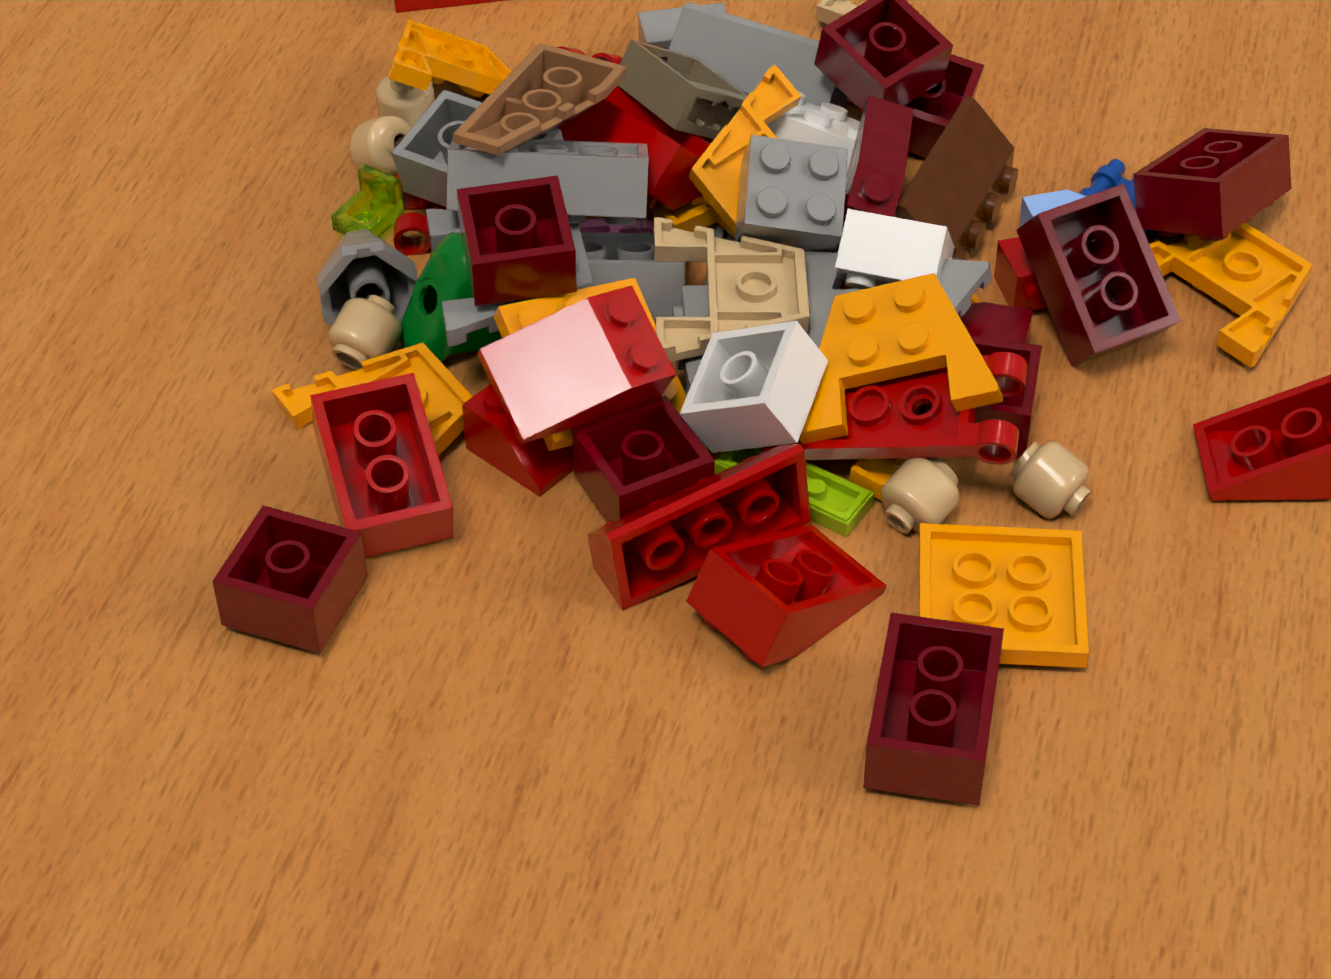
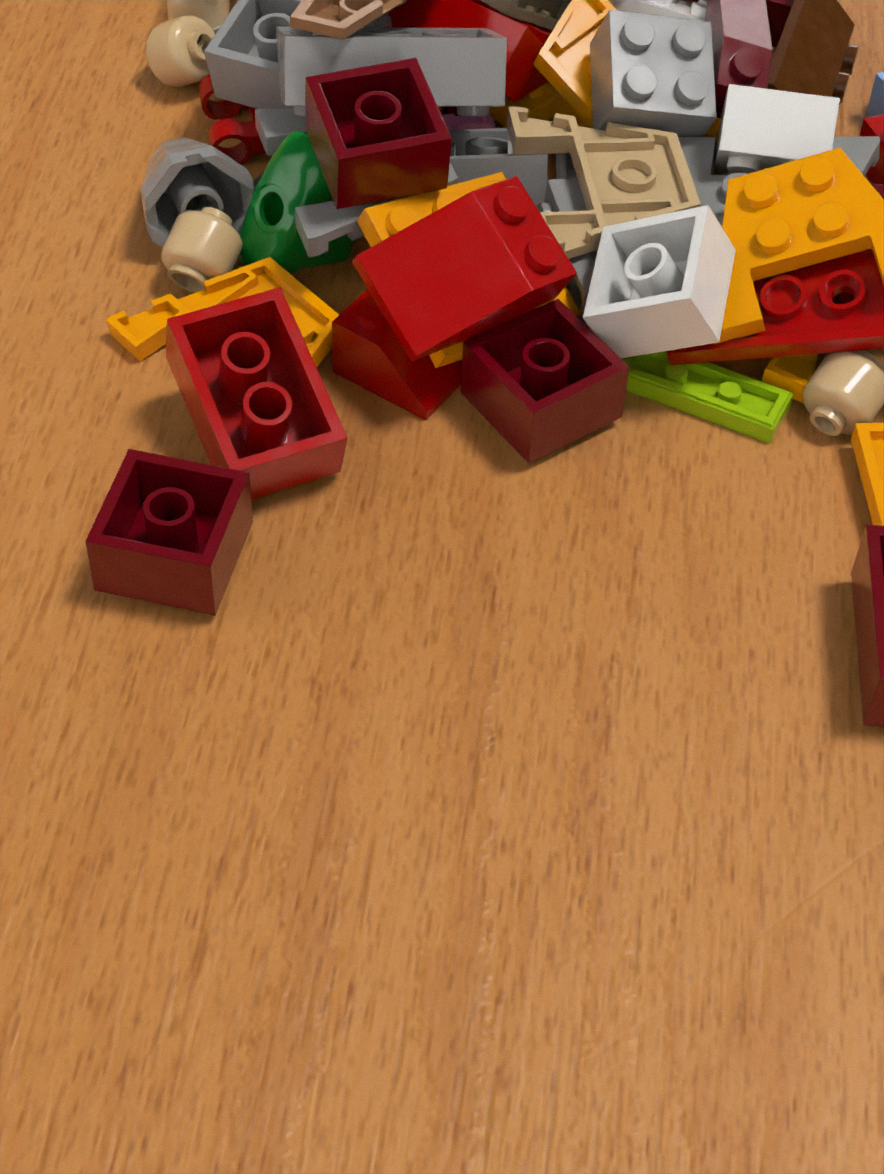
camera: 10 degrees left, 5 degrees up
(373, 206) = (182, 113): clear neon green bracket -> none
(674, 534) = (624, 439): red slope -> none
(781, 592) = (721, 510): red slope -> none

